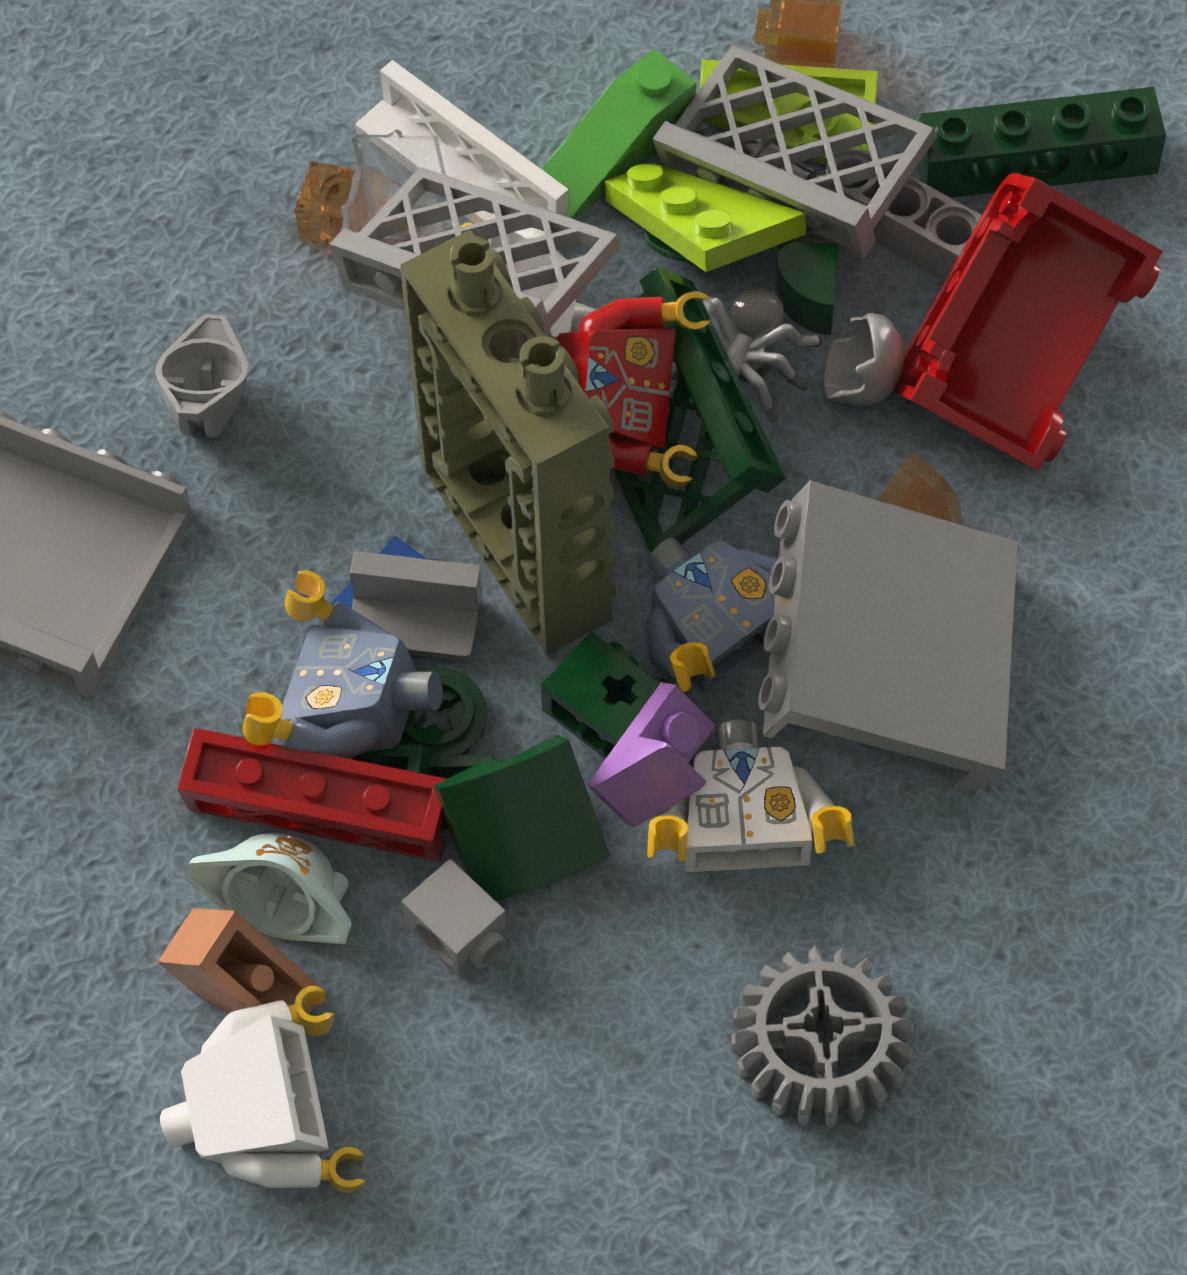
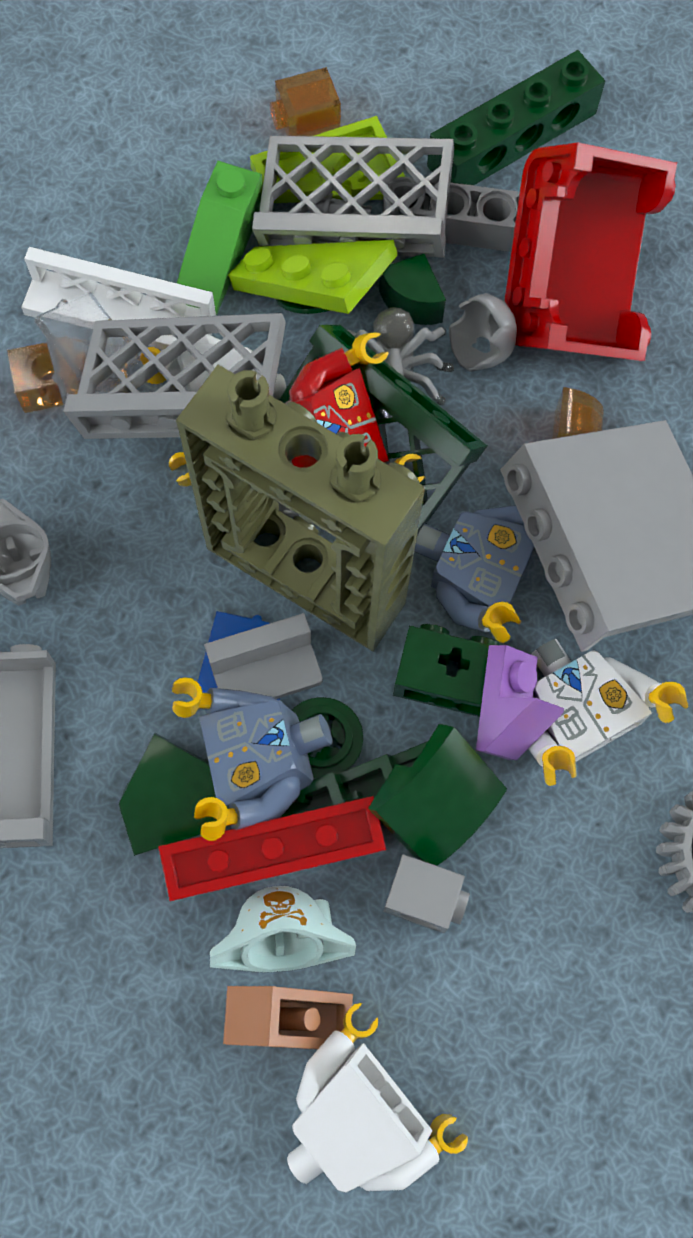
camera: 30 degrees left, 10 degrees up
(219, 688) = (163, 796): none -> dark green slope

